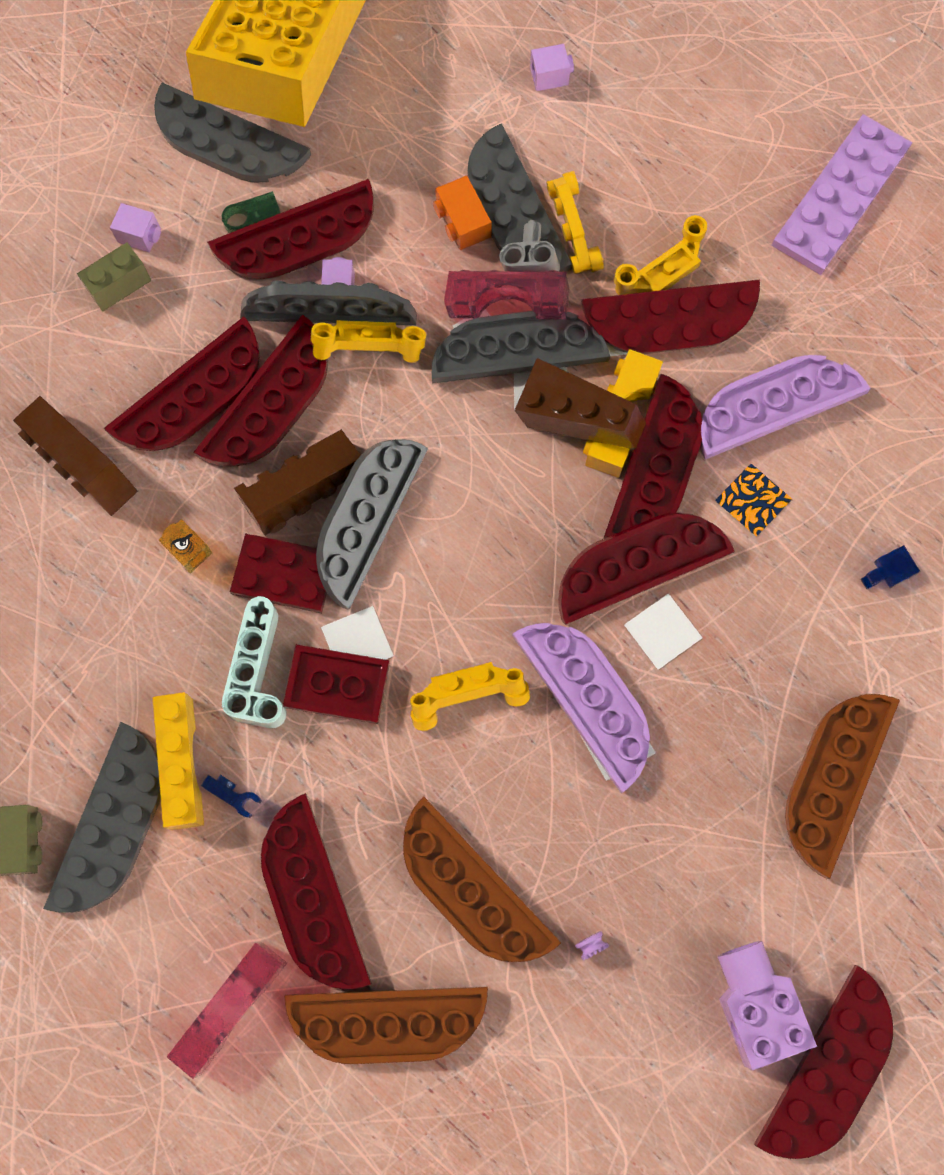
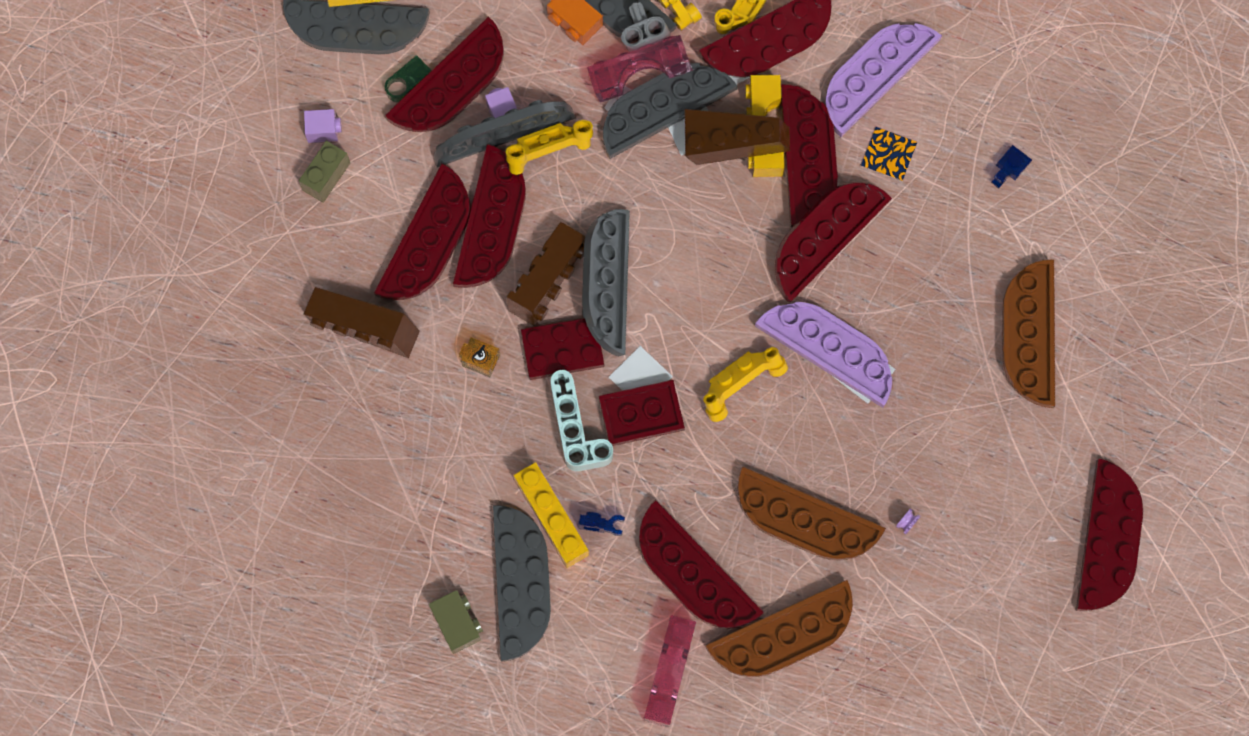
camera: 25 degrees left, 0 degrees up
(663, 631) = (863, 278): white sticker -> none
(762, 1008) = (1043, 513): lavender brick -> none

